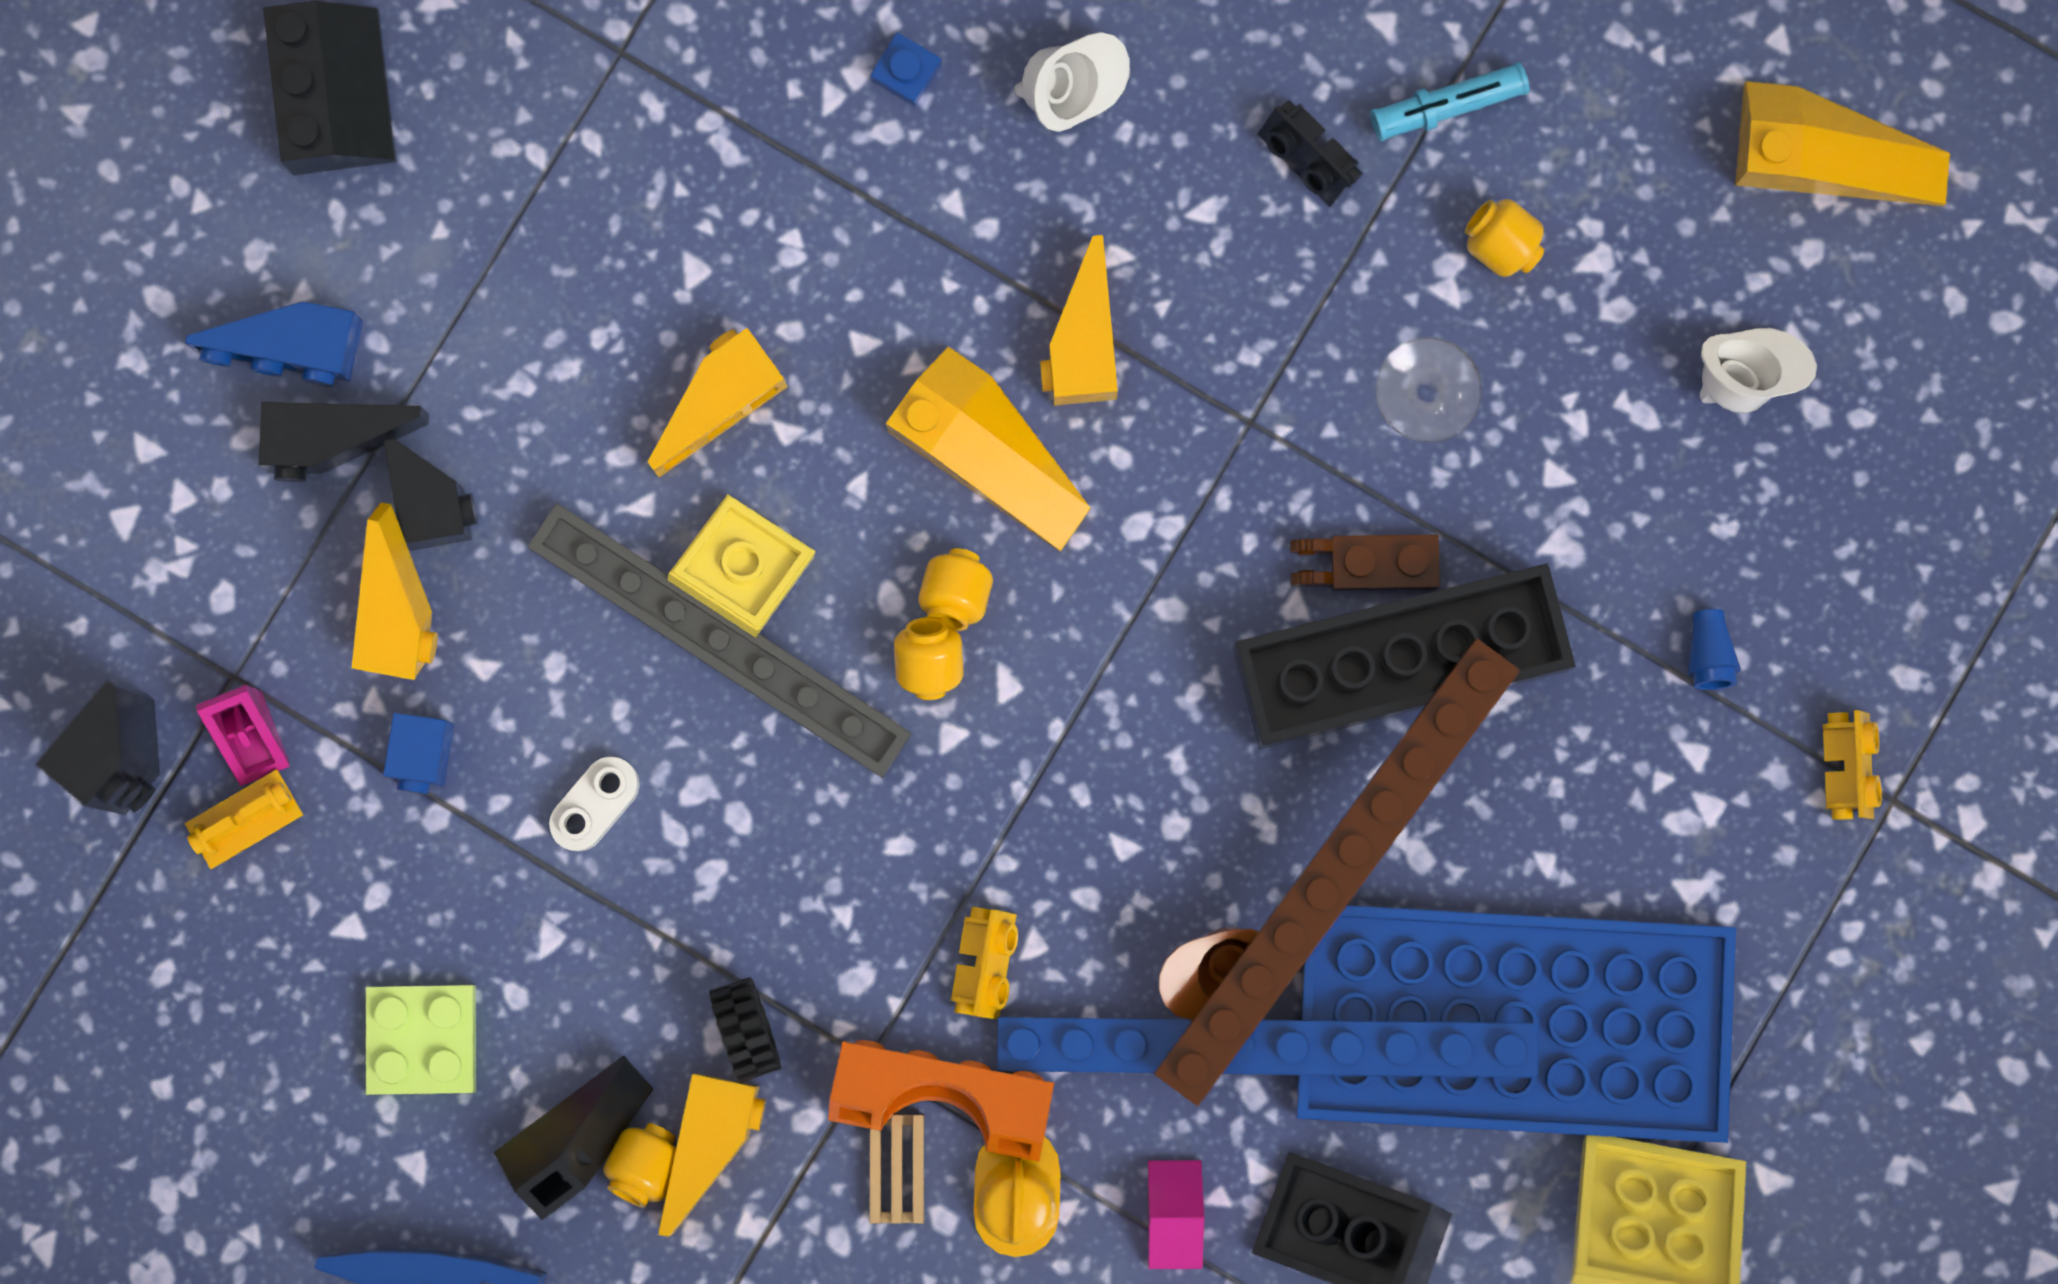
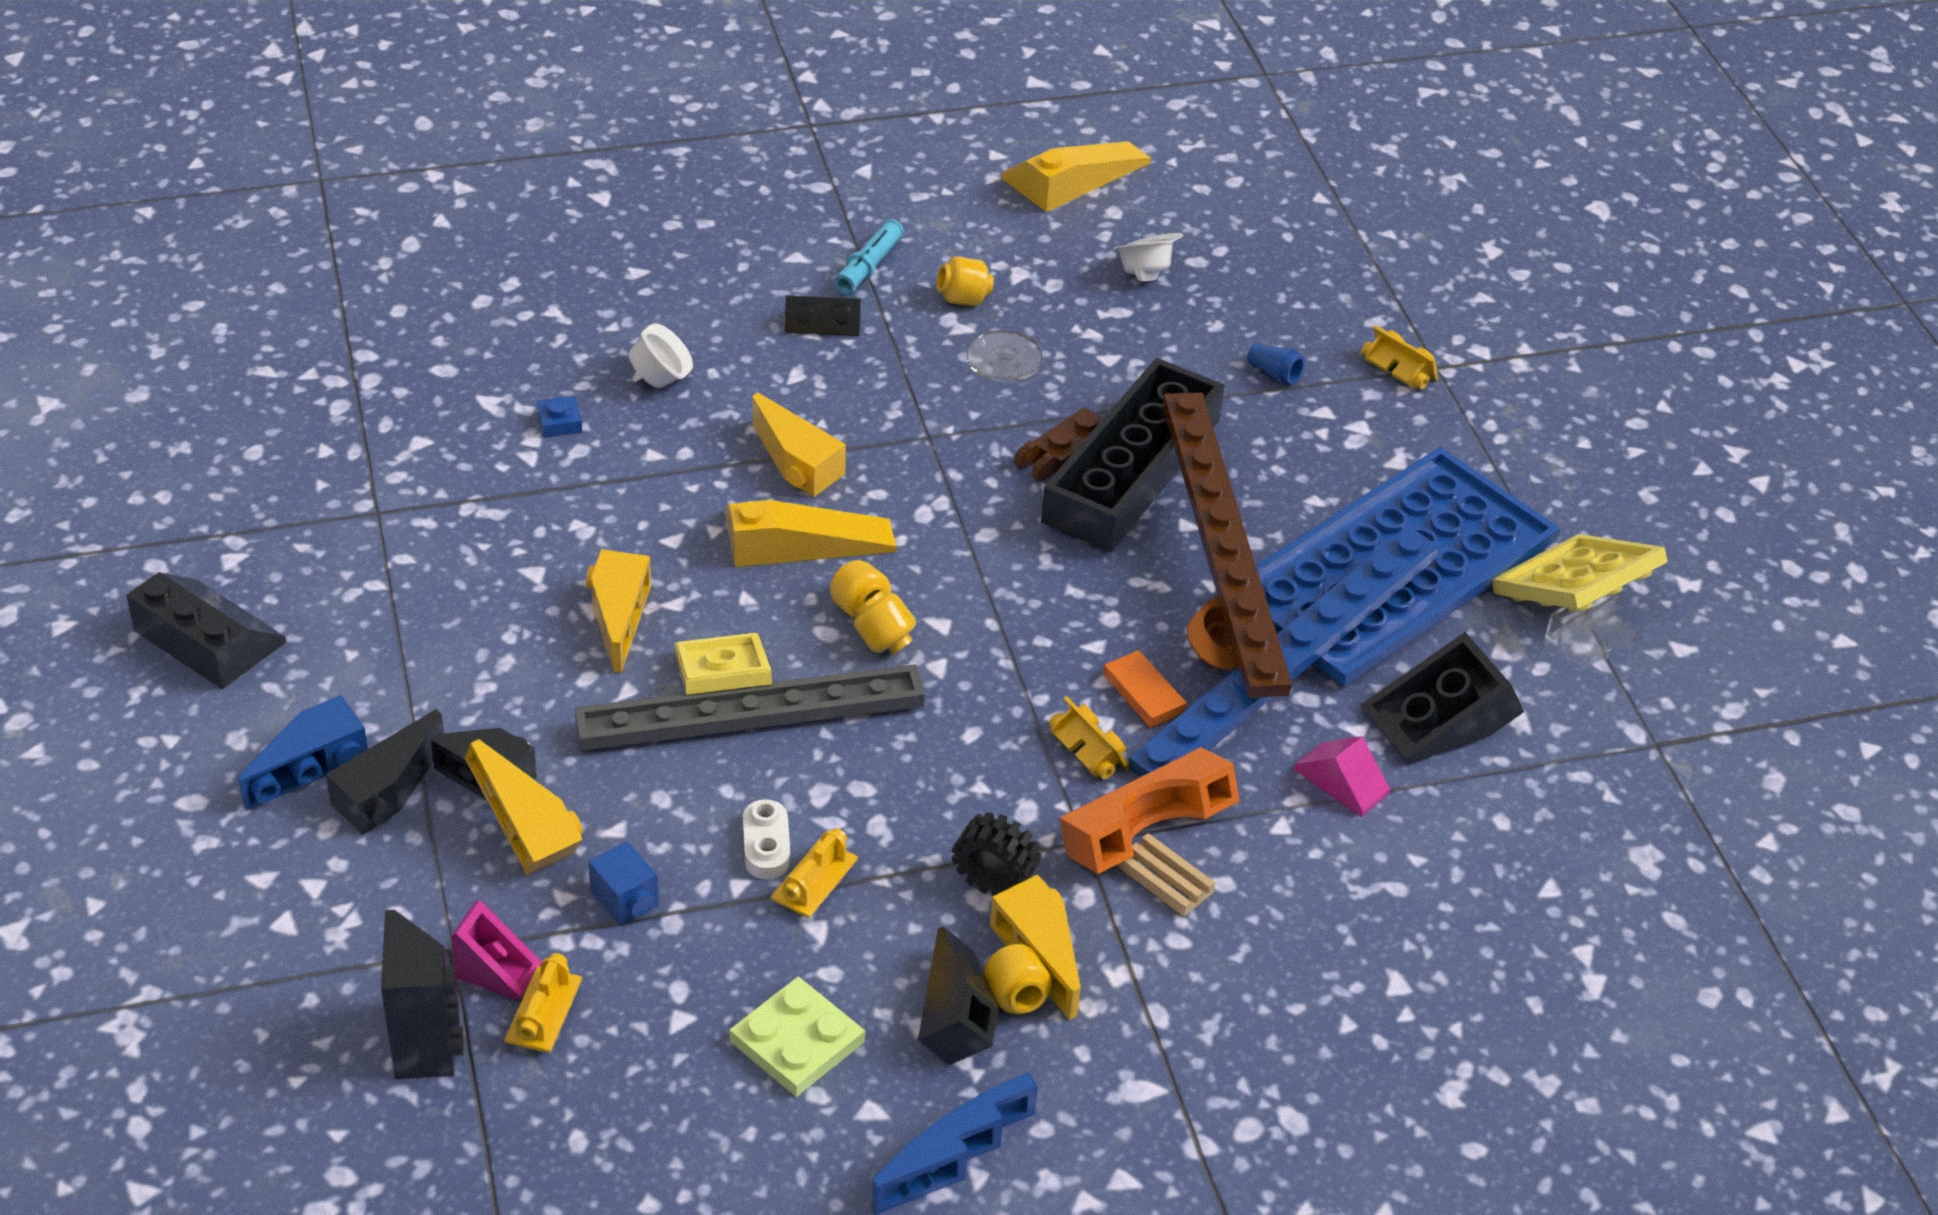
camera: 50 degrees left, 40 degrees down
(591, 888) = (816, 874): none -> yellow hinge
(1017, 1200) = (1250, 836): yellow piece -> none
(1105, 946) = (1144, 689): none -> orange tile

